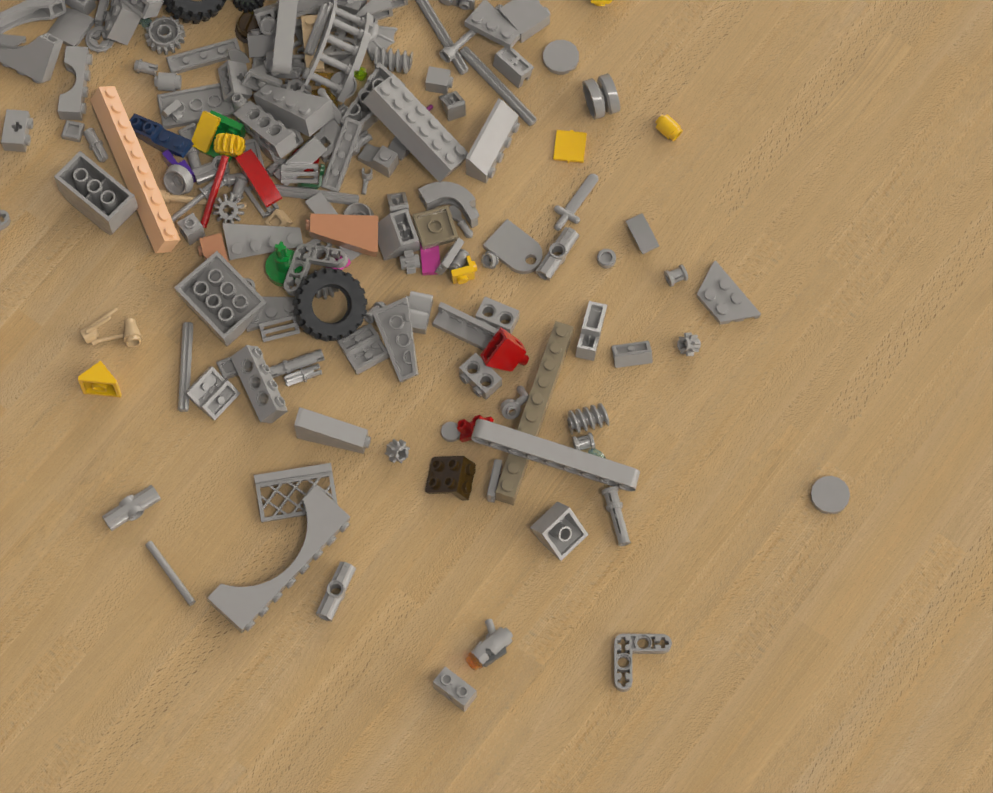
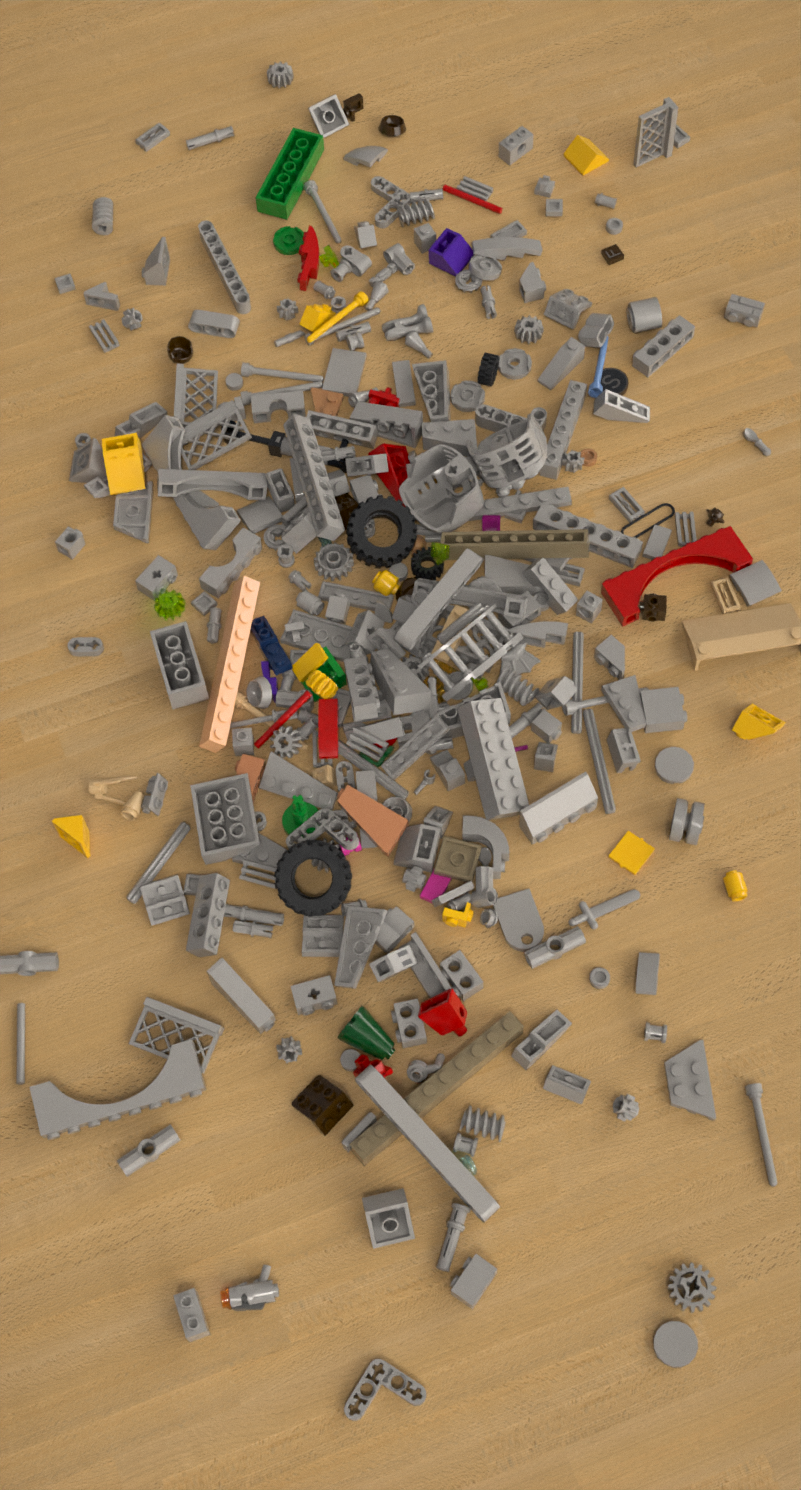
camera: 35 degrees right, 5 degrees down
(44, 147) = (169, 604): none -> clear neon green gear
(119, 51) = (285, 555): none -> light grey bush
(147, 320) = (156, 787): none -> light grey hinge
(197, 73) = (338, 608): none -> light grey brick
(223, 30) = (386, 583): none -> yellow head
(227, 15) = (400, 571): none -> light grey tile
(294, 216) = (339, 775): none -> light grey beam
(390, 389) = (321, 988): none -> light grey brick
(418, 80) = (525, 720): none -> light grey pin
(430, 47) = (556, 692): none -> light grey brick
(438, 336) = (393, 963): none -> light grey slope
(452, 404) = (367, 1035): none -> dark green cone
(474, 240) = (484, 894): none -> light grey piece
(654, 537) = (473, 1280): none -> light grey brick
(778, 278) = (755, 1092): none -> light grey piece
(812, 453) = (700, 1291): none -> light grey gear

